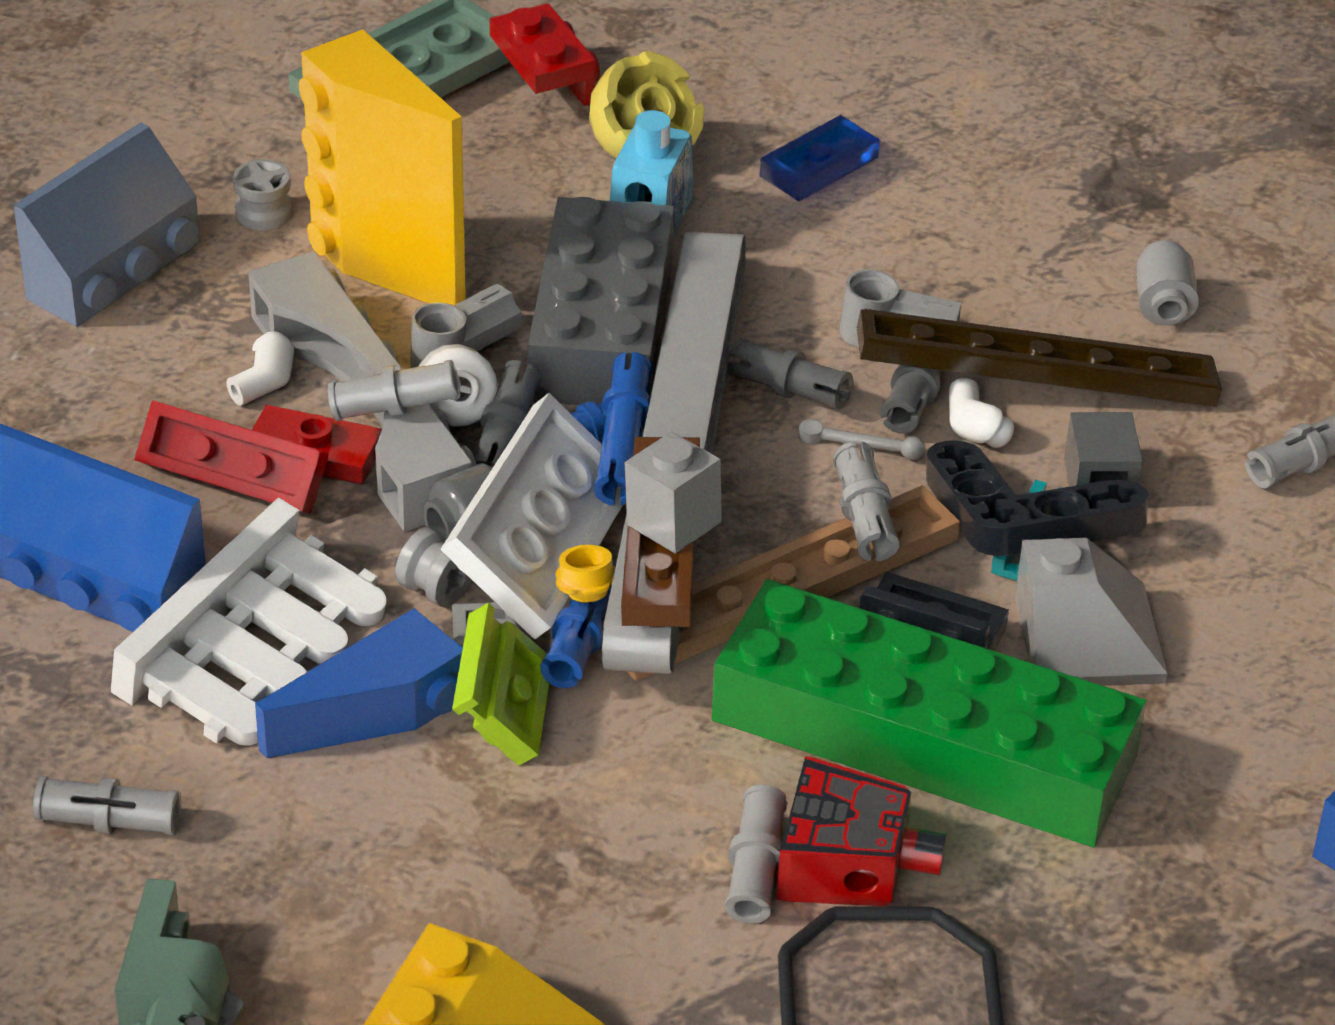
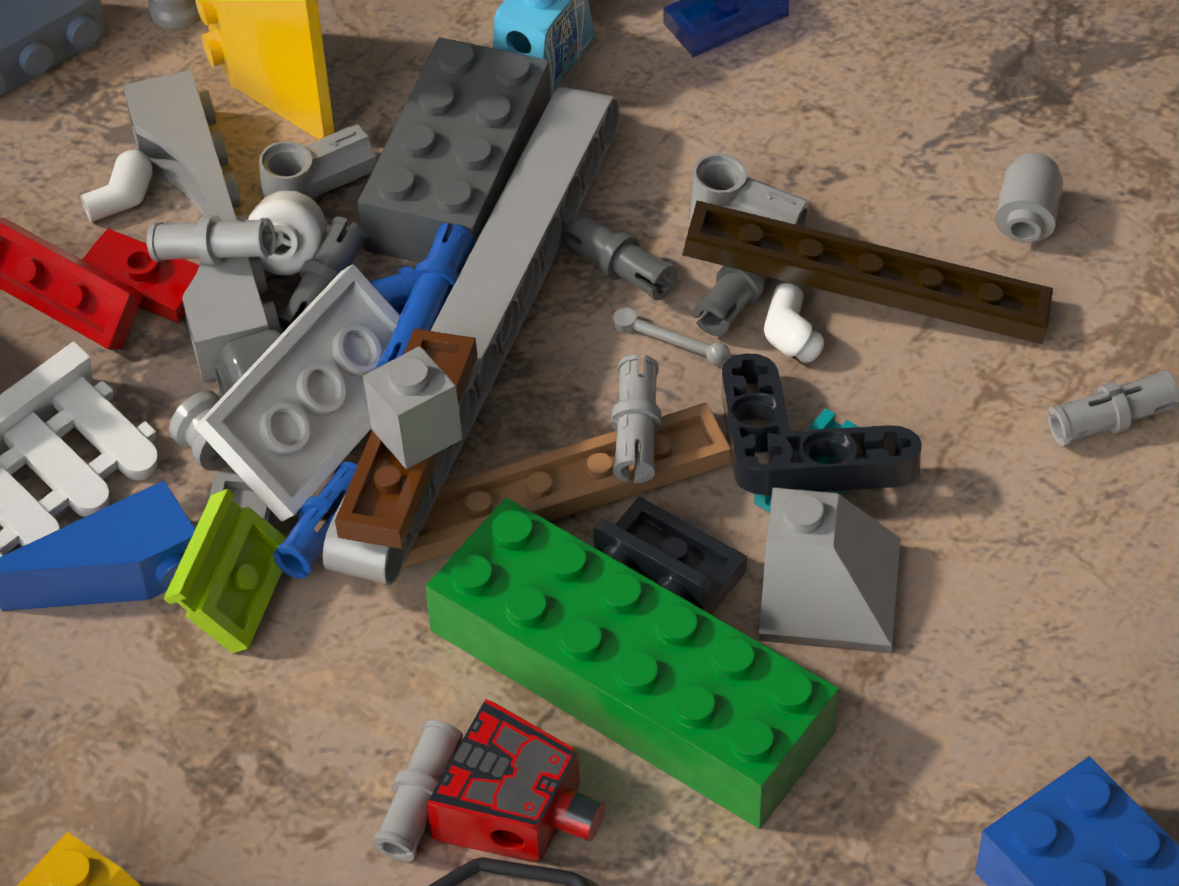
camera: 15 degrees right, 10 degrees up
(585, 572) = (334, 462): yellow plate -> none
(1102, 448) = (899, 388): dark grey brick -> none

